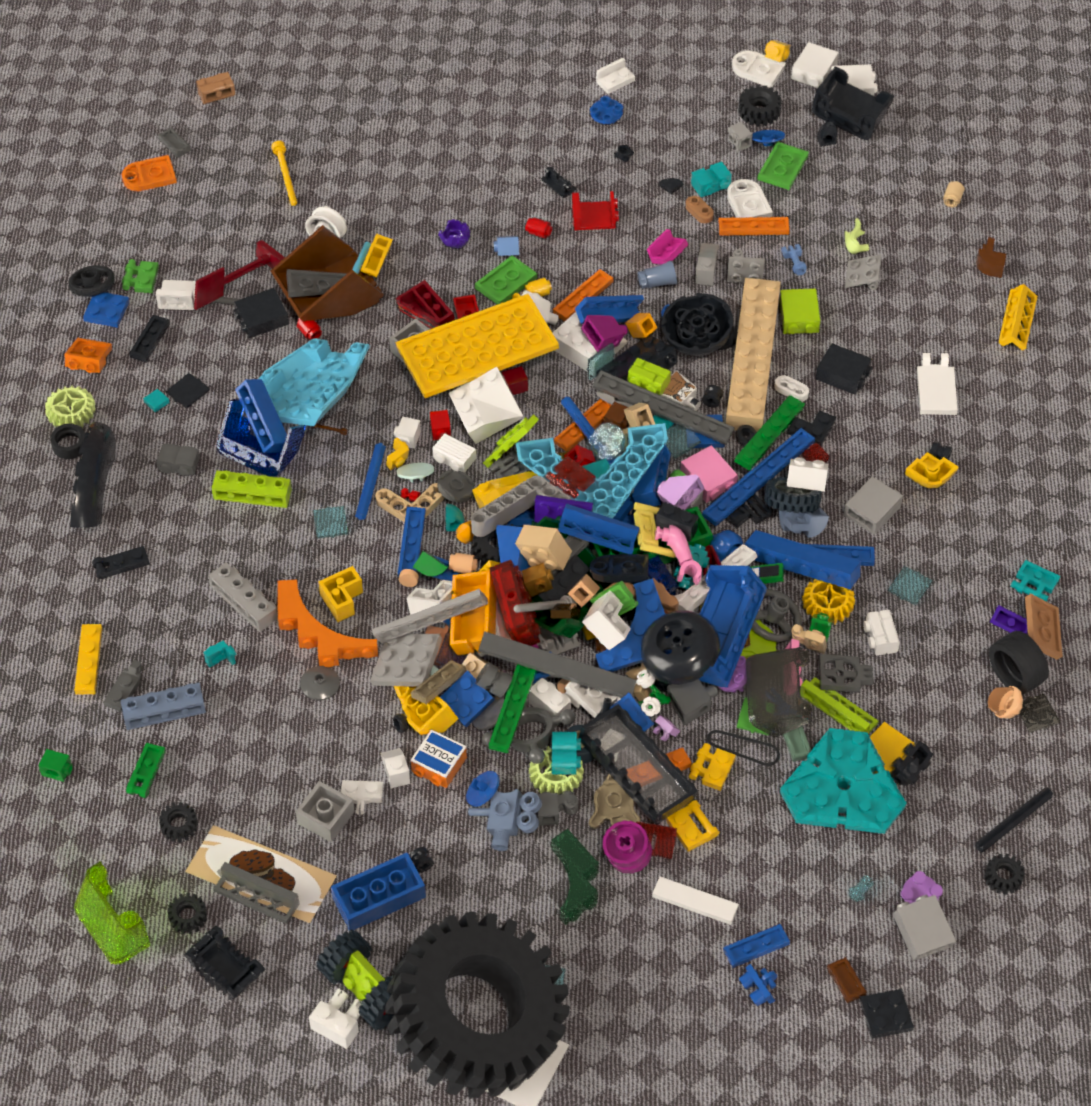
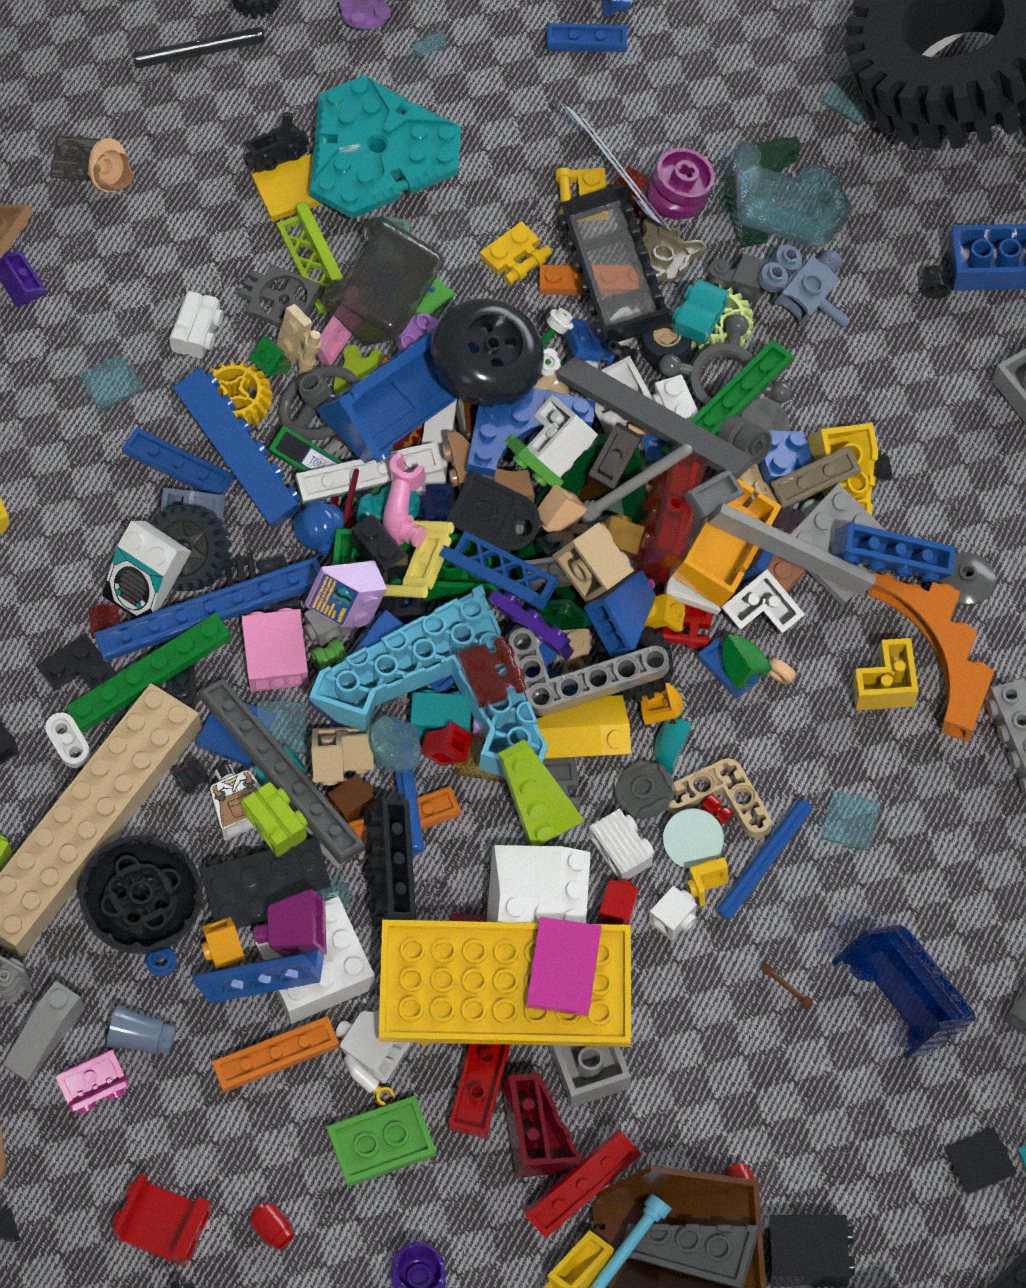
camera: 155 degrees left, 10 degrees up
(251, 489) = (948, 916): lime brick -> none
(262, 415) = (893, 1003): blue brick -> none
(311, 380) = (831, 1066): medium azure wedge -> none
(363, 792) = (973, 400): white plate -> none
(367, 656) = (893, 552): none -> blue brick
(389, 294) = (582, 1183): none -> red plate
(396, 767) = (917, 412): white slope -> none
(412, 538) = (750, 725): blue tile -> none
(438, 759) = (857, 393): piece -> none
(449, 357) = (564, 966): none -> dark pink tile
(463, 563) = (699, 642): light nougat brick -> none
(482, 788) = (820, 331): blue piece -> none
(491, 613) = (713, 493): none -> dark grey tile
(507, 245) = (345, 1204): medium blue brick -> none
(539, 286) = (339, 1098): yellow brick -> none
(549, 861) = (788, 207): none -> clear light blue windscreen
(574, 387) = (390, 860): none -> black brick
(667, 726) = (540, 315): lavender tile -> none
(695, 900) = (629, 111): white tile -> none
(711, 862) = (644, 203): none -> white sticker
(744, 738) = (472, 259): black piece -> none
(873, 505) = (81, 504): light grey brick -> none
(1019, 661) = (64, 189): black tyre -> none

